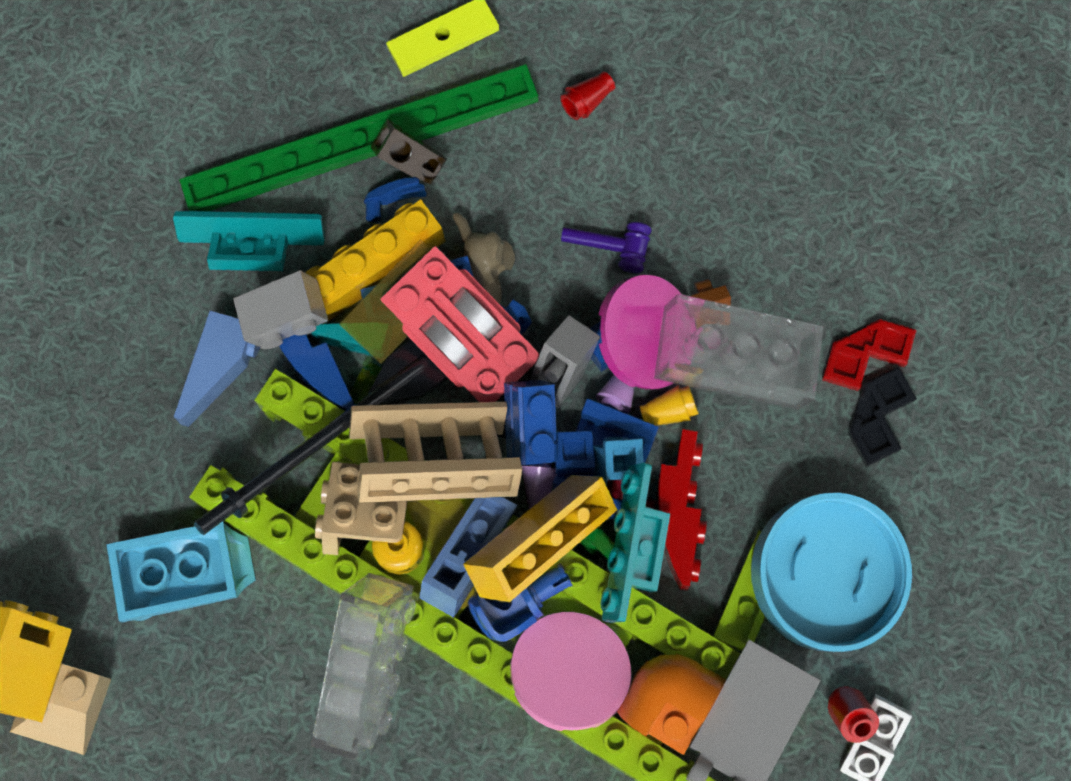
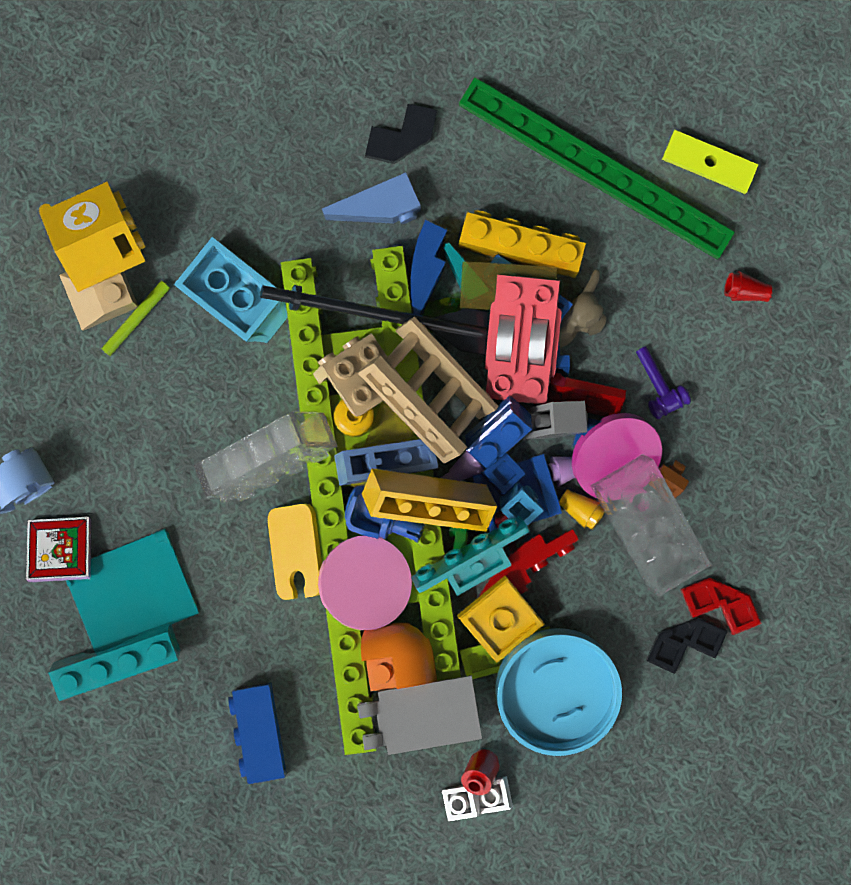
camera: 45 degrees right, 10 degrees up
(119, 690) = (135, 318): none -> lime bar
(177, 304) = (394, 146): none -> black tile
(248, 239) = (472, 155): teal bracket -> none
(280, 310) = (440, 219): light grey brick -> none
(390, 193) = (576, 217): blue piece -> none
(407, 153) = (610, 207): dark brown leg -> none
(477, 715) = (294, 549): none -> yellow piece
(580, 303) = (598, 398): none -> red hinge
(714, 568) = (500, 619): none -> yellow plate

